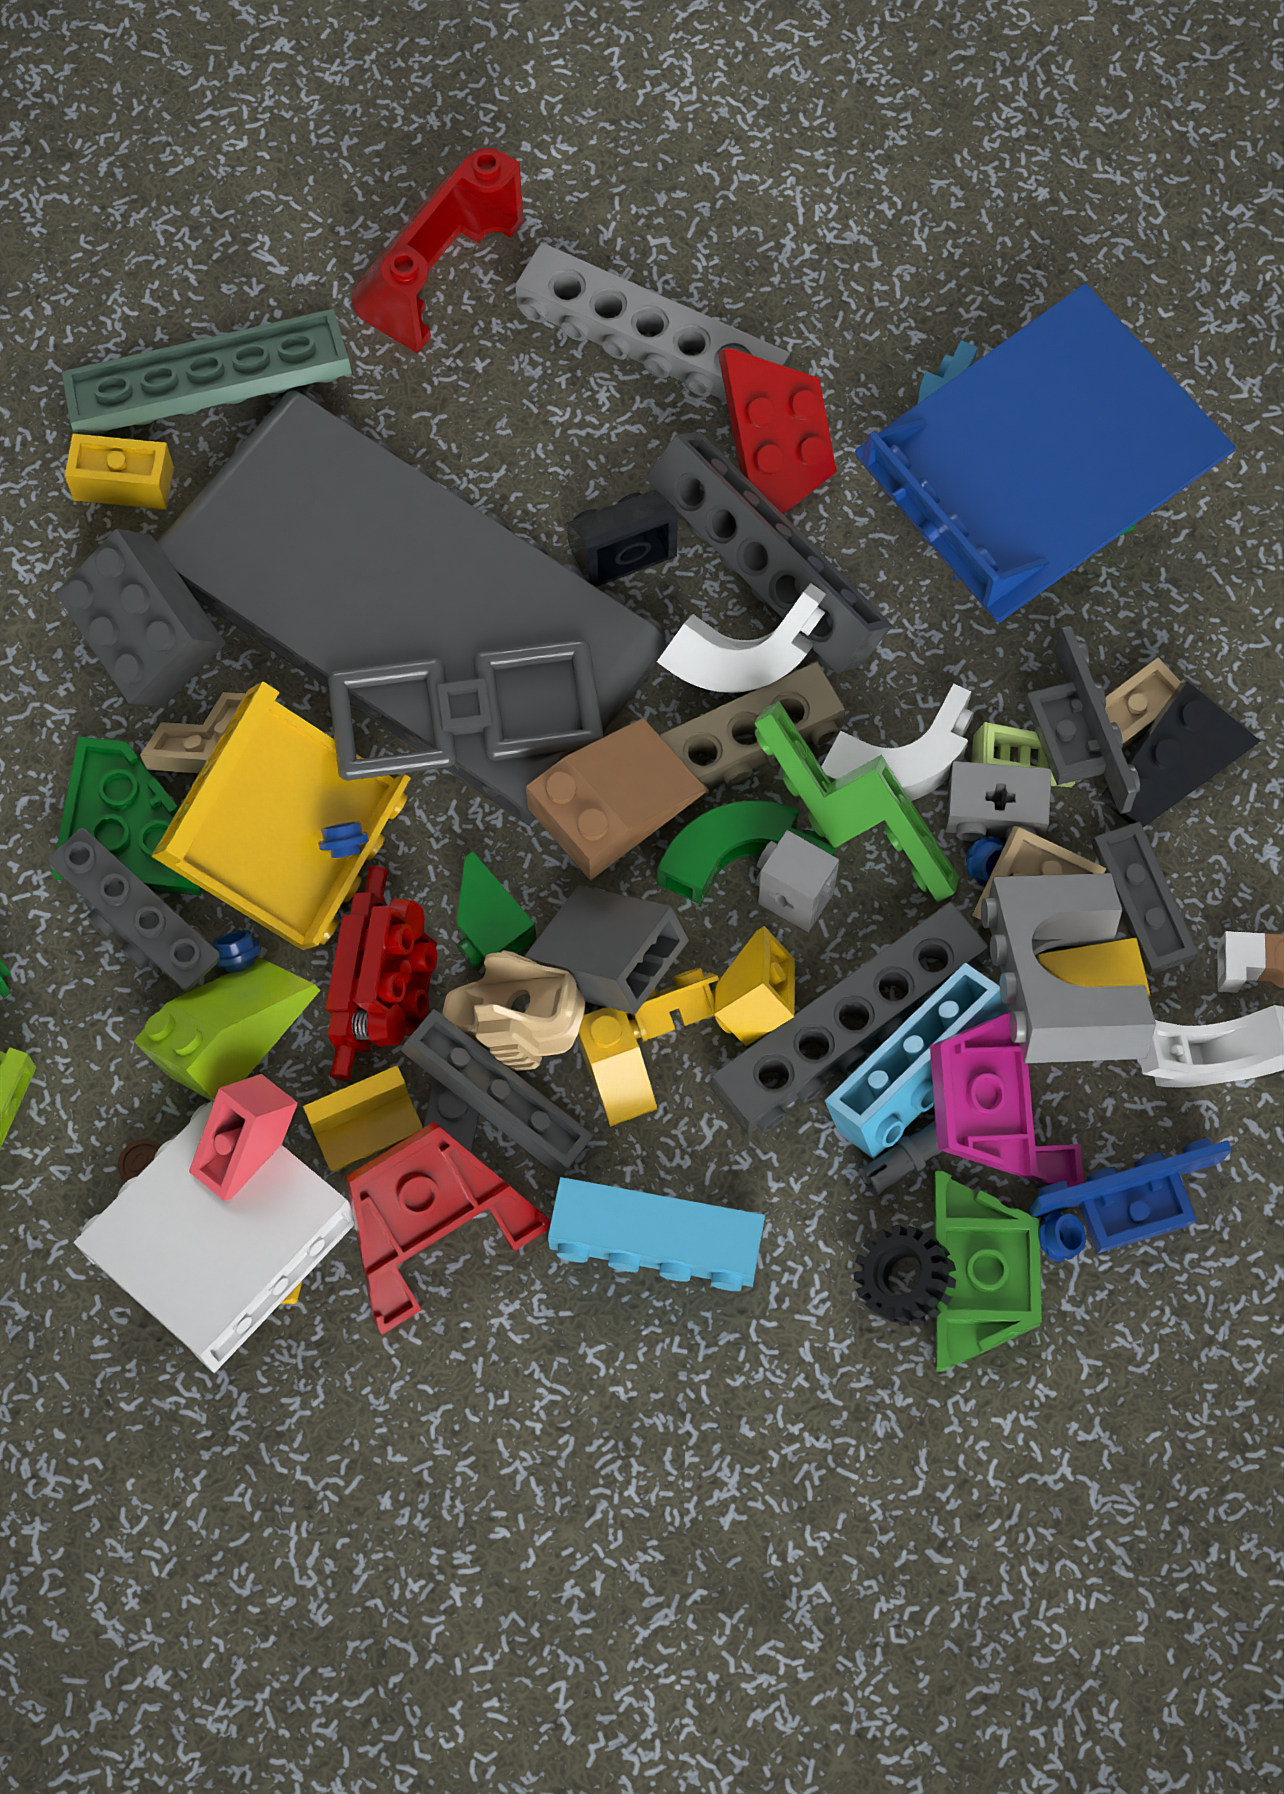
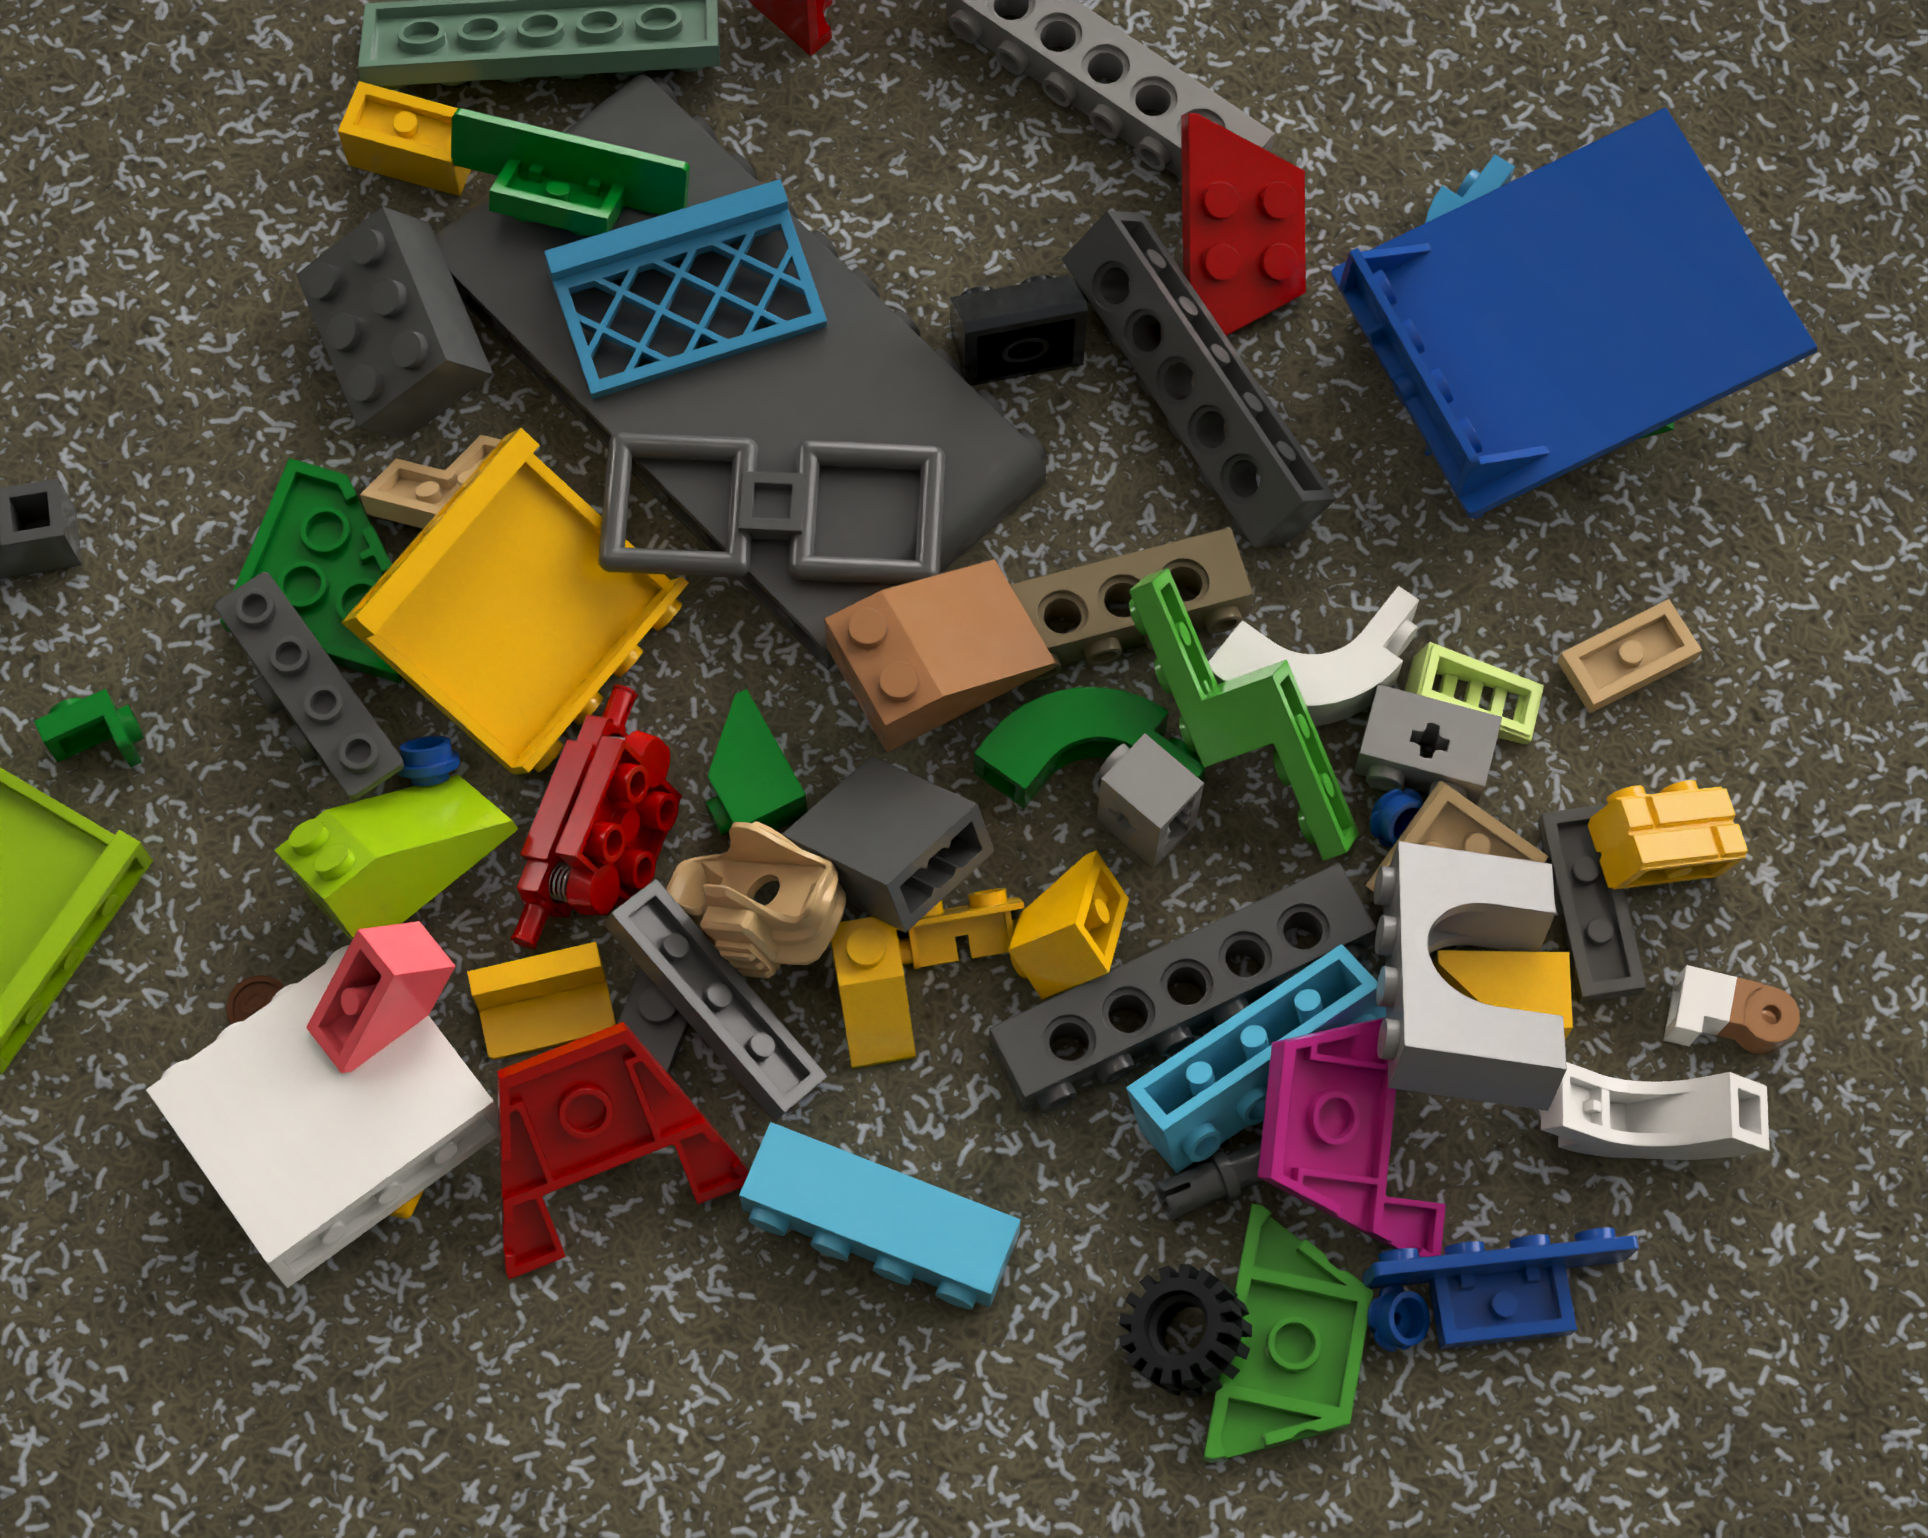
camera: 10 degrees right, 0 degrees up
(251, 480) = (564, 176): none -> green bracket
(333, 522) = (668, 240): none -> dark azure fence
(343, 839) = (587, 644): blue plate -> none
(733, 665) = (1121, 513): white arch -> none
(1077, 729) = (1545, 671): dark grey bracket -> none
(1181, 752) = (1669, 727): black wing -> none
(1191, 836) = (1666, 835): none -> yellow brick

